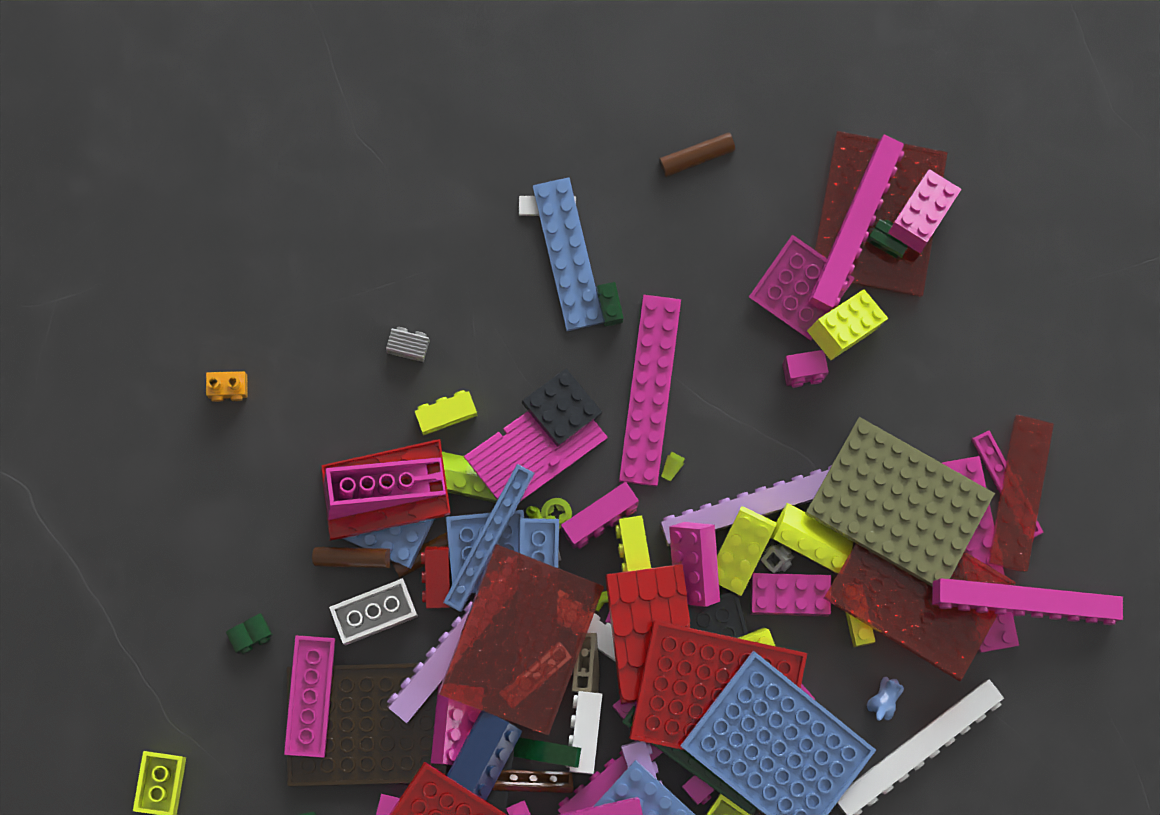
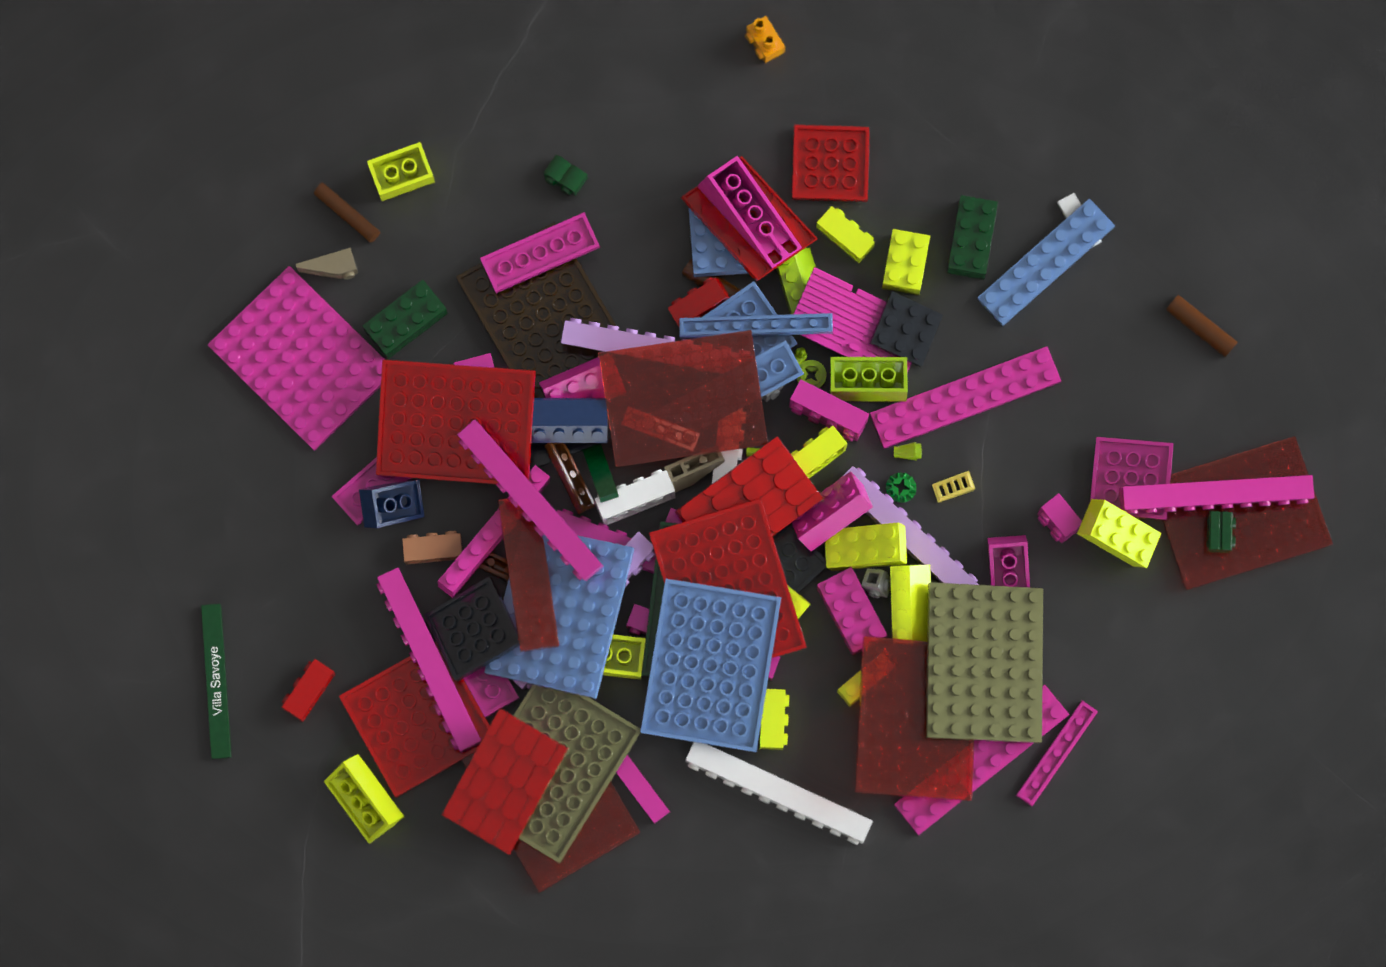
camera: 65 degrees right, 0 degrees up
(351, 557) = (676, 222): reddish brown brick -> none
(373, 390) = (830, 163): none -> red plate
(373, 612) = (640, 266): white brick -> none
(407, 344) = (886, 170): light grey brick -> none
(501, 374) = (906, 262): none -> neon yellow brick
(511, 304) = (972, 237): none -> dark green brick
(589, 464) = (869, 378): none -> lime slope
(610, 304) = (1021, 321): dark green brick -> none
(700, 480) = (905, 495): none -> green gear
(725, 427) = (951, 480): none -> light yellow slope
(818, 433) = (1009, 561): none -> dark pink slope
(852, 716) = (774, 720): none -> neon yellow brick
(885, 700) = (803, 742): medium blue animal -> none
(924, 211) = (1261, 547): brick -> none
(1021, 493) = (1056, 767): clear red plate -> none
(1027, 600) = (960, 817): dark pink brick -> none

